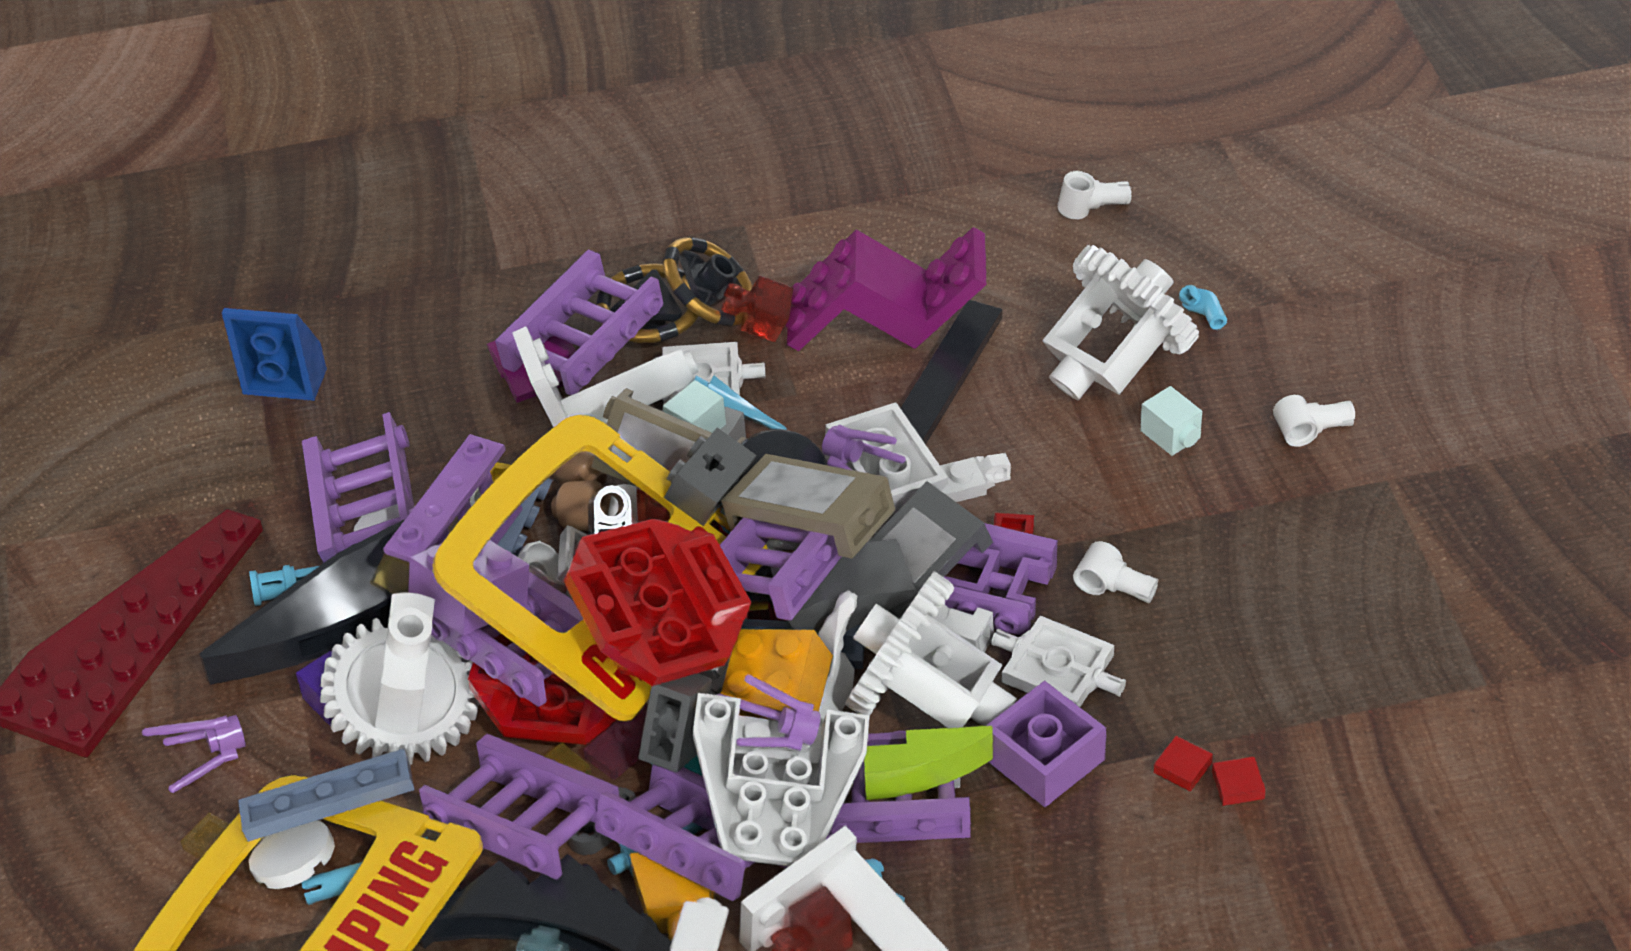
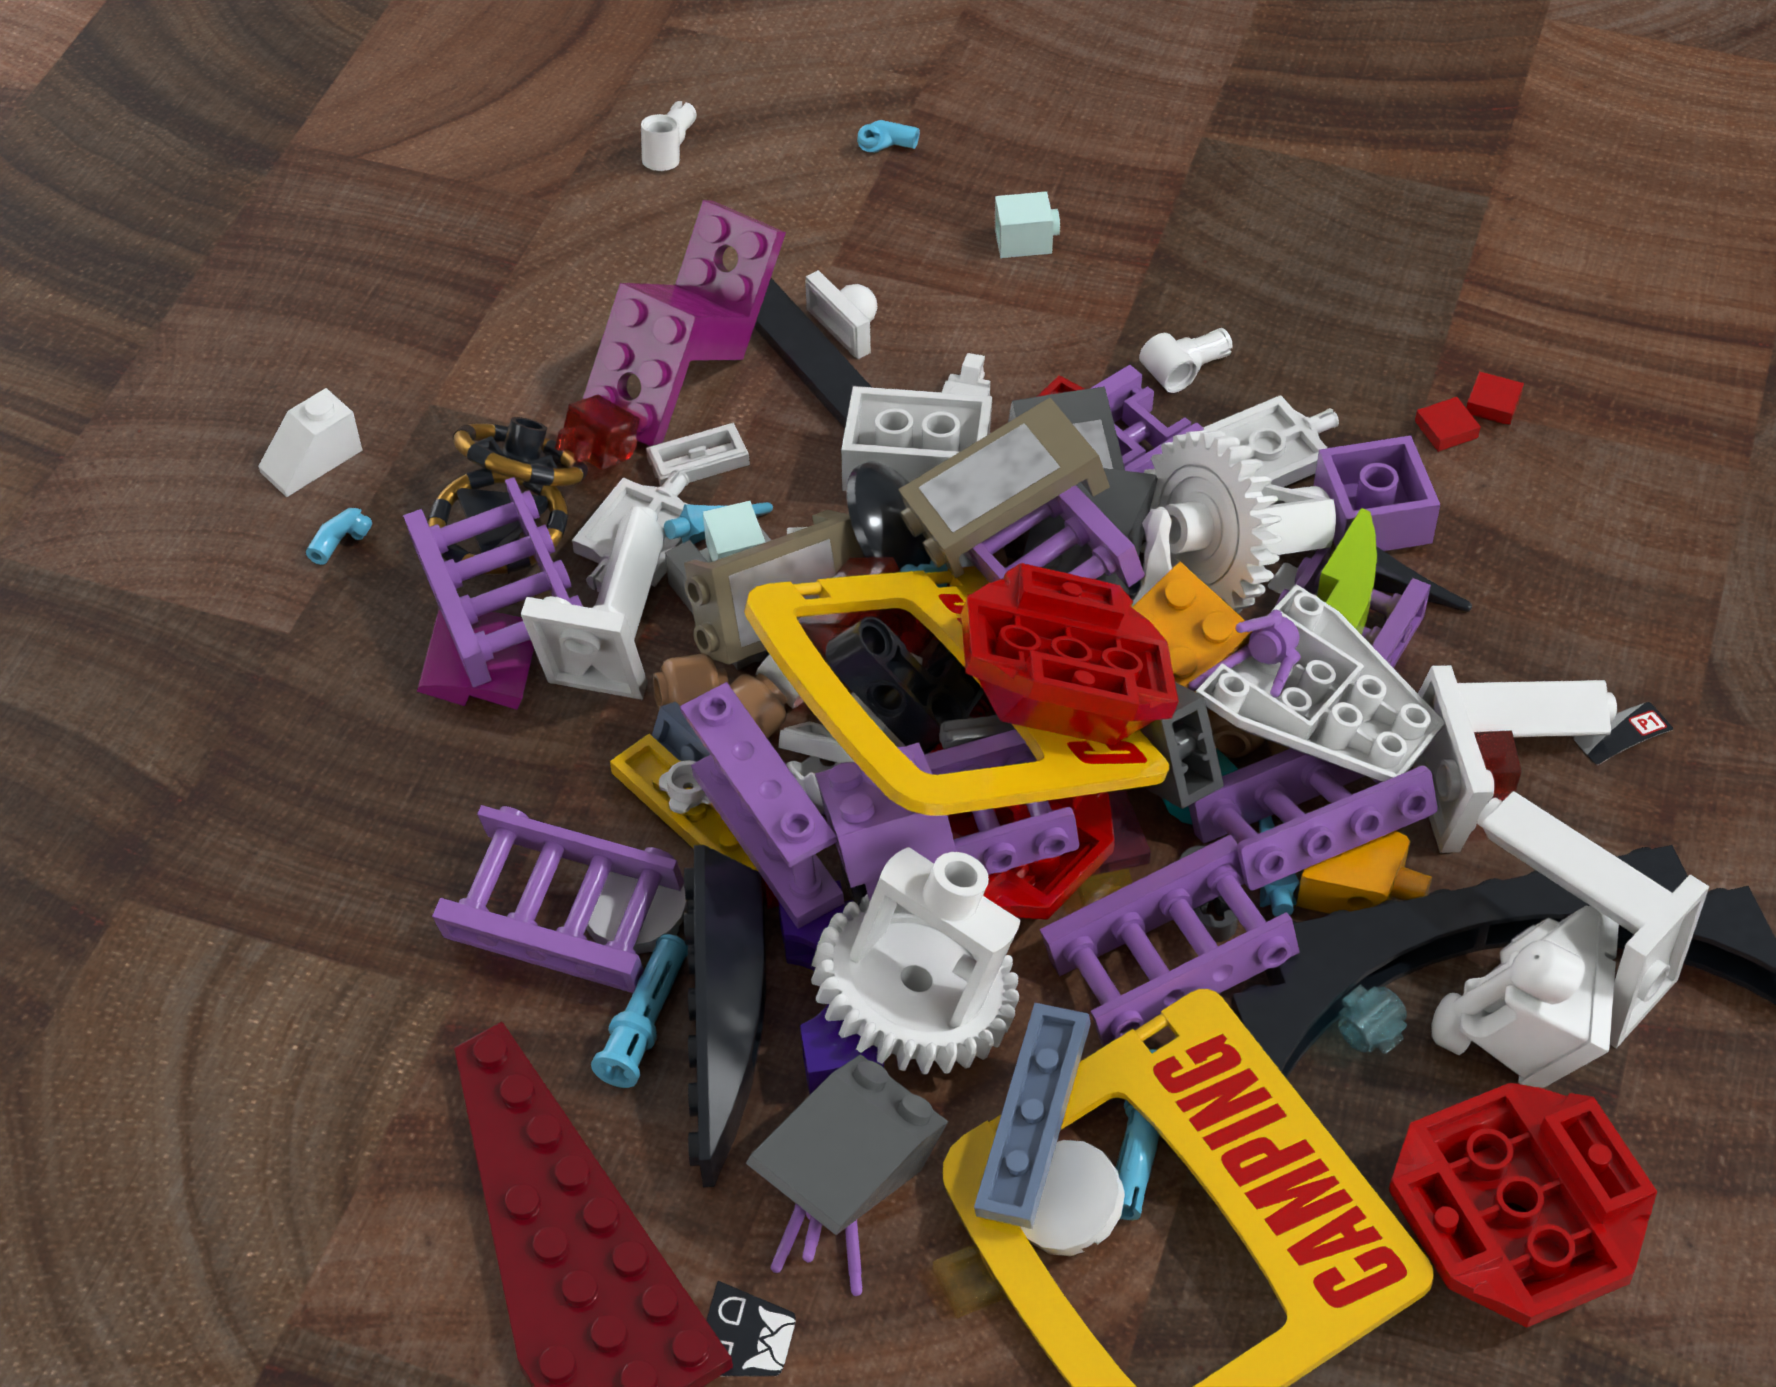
camera: 60 degrees left, 5 degrees up
(116, 753) = (751, 1331): none -> black sticker
(243, 715) = (849, 1144): none -> dark grey slope
(274, 354) = (269, 883): blue slope -> none
(392, 575) = (752, 901): clear yellow tile -> none
(588, 240) = (334, 530): none -> medium azure arm
(653, 187) = (310, 442): none -> white slope
(708, 475) = (897, 545): dark grey brick -> none
(794, 374) = (699, 462): none -> white tile
(846, 446) = (903, 438): medium lavender plant -> none
(985, 792) = (1395, 577): none -> black piece
(992, 370) = (842, 312): none -> white tile
(1140, 297) = (883, 151): white piece -> none
(1303, 420) = (1098, 142): white pin -> none

